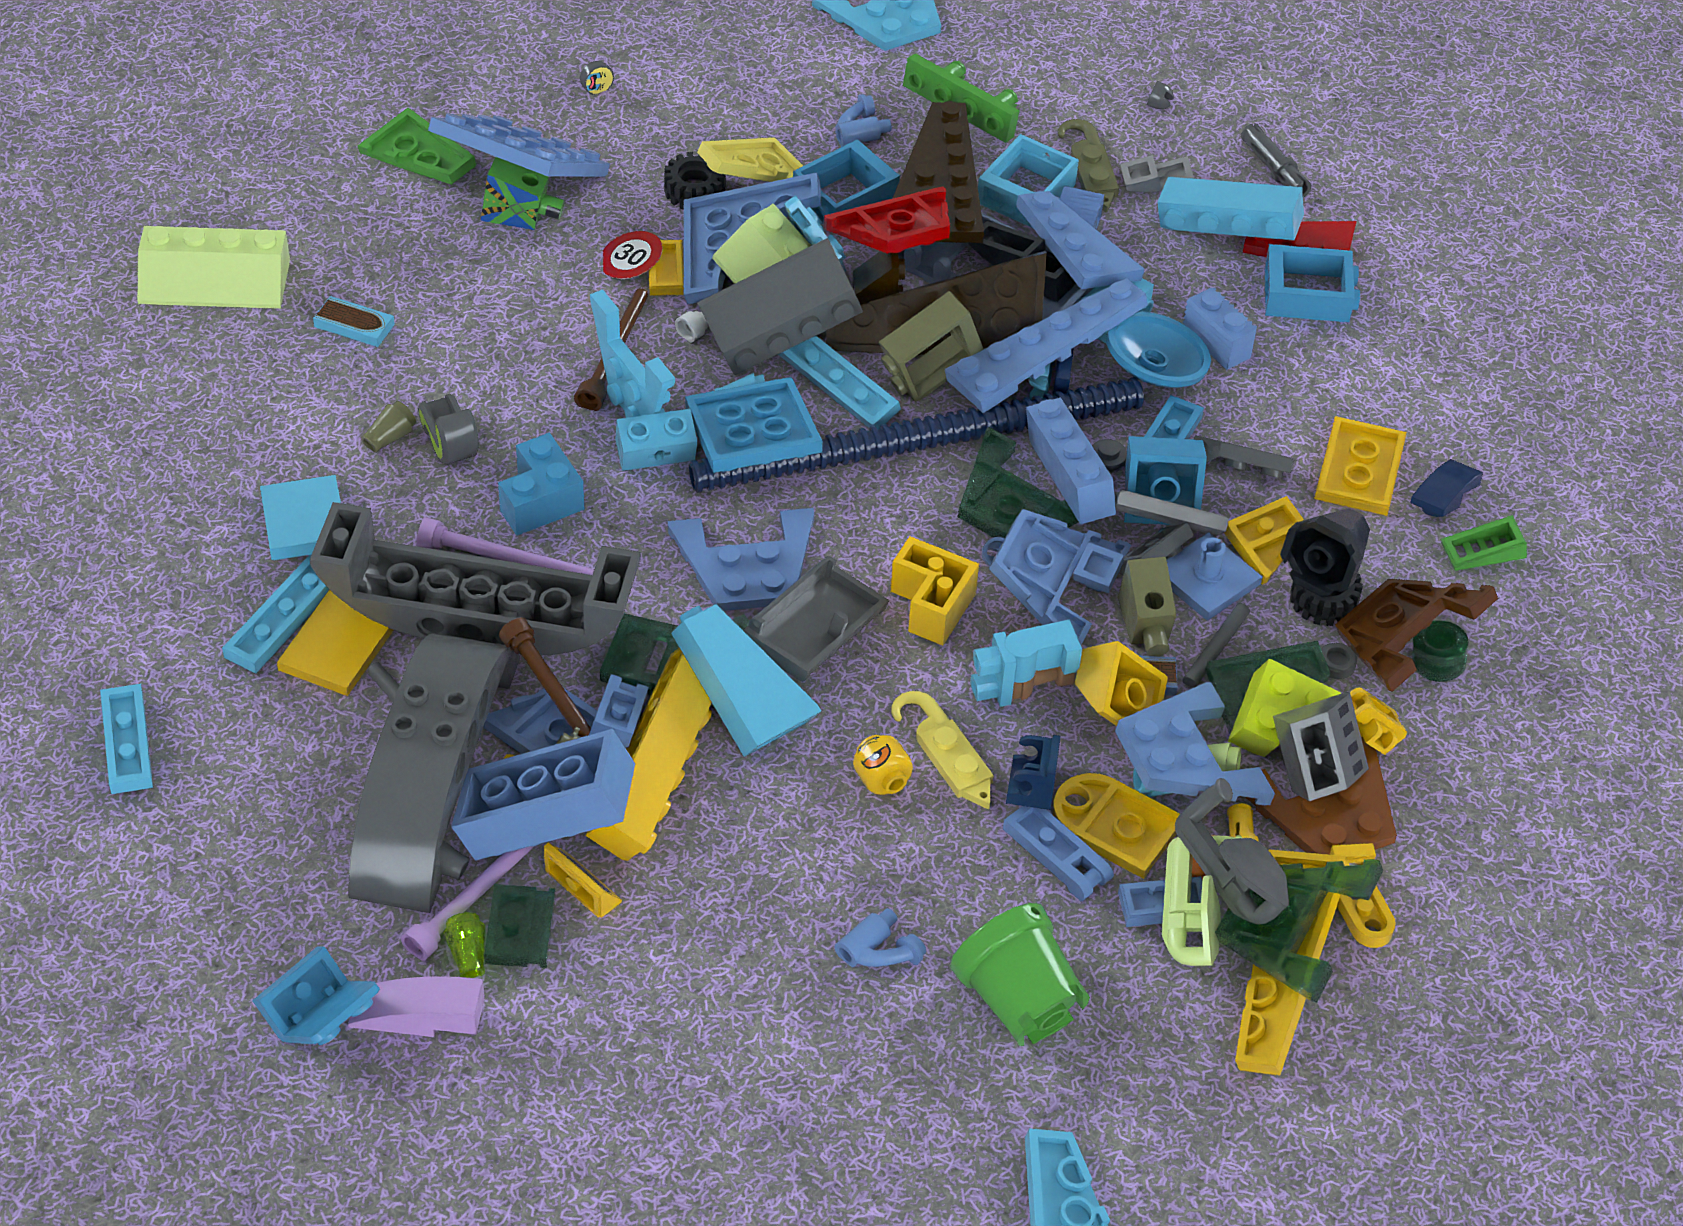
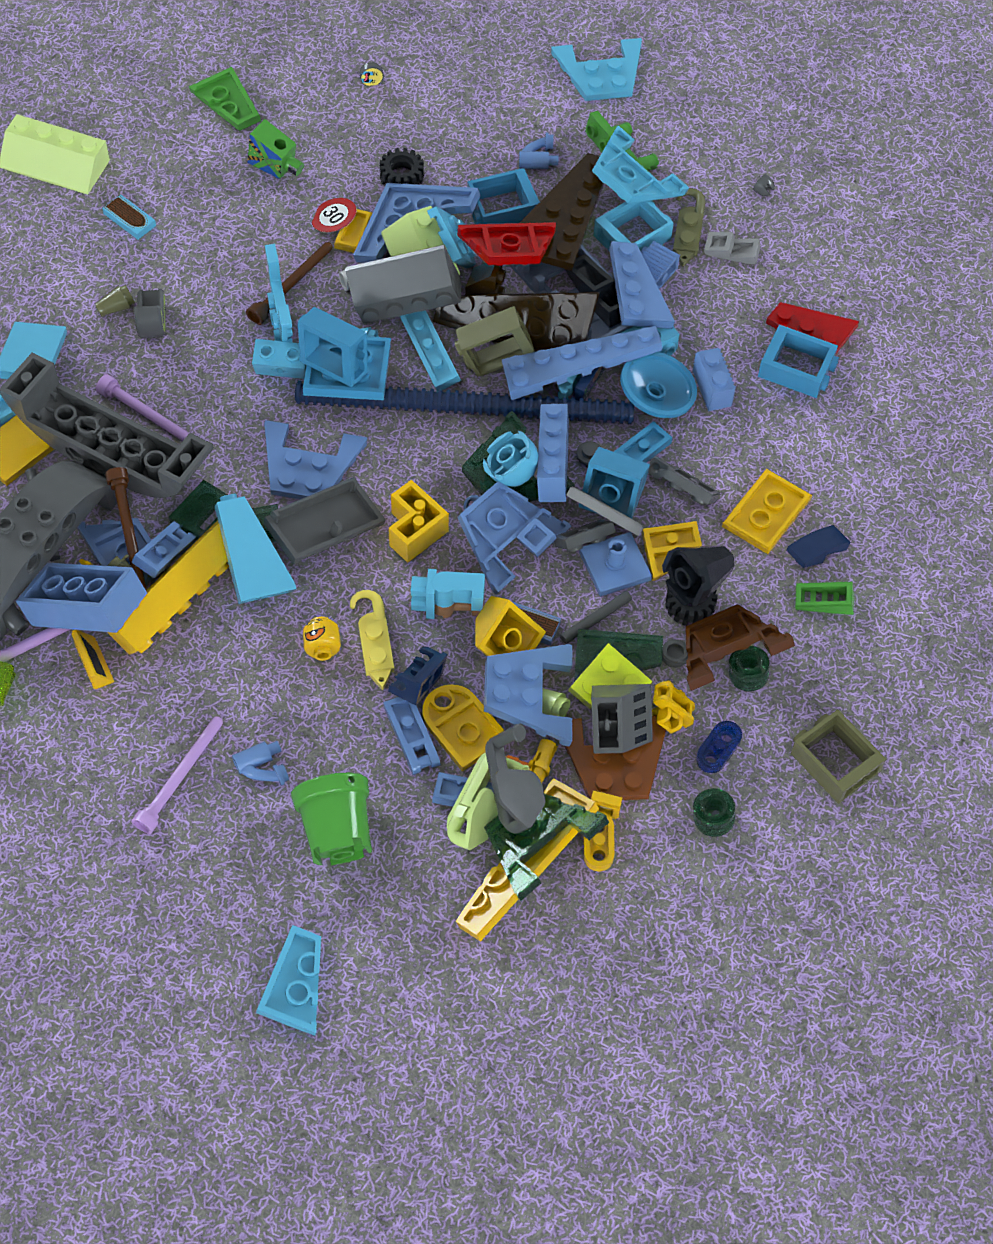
camera: 20 degrees right, 10 degrees up
(519, 145) = (286, 117): medium blue plate -> none
(519, 926) = (38, 680): clear green plate -> none
(544, 487) = (192, 376): dark azure brick -> none
(742, 372) = (352, 340): none -> dark azure window
(750, 158) = (444, 164): light yellow wing -> none
(760, 1057) = (147, 818): none -> lavender piece
(998, 117) = (628, 177): none -> medium azure wing
(1028, 477) = (511, 459): none -> medium azure cylinder
(1148, 604) = (555, 576): olive torso -> none
(1231, 208) = (766, 289): medium azure brick -> none
(1282, 168) = (825, 265): dark grey pin -> none
(1451, 755) = (717, 747): none -> clear blue plate
(1488, 831) = (714, 800): none -> clear green wheel
(1611, 699) = (872, 759): none -> olive window

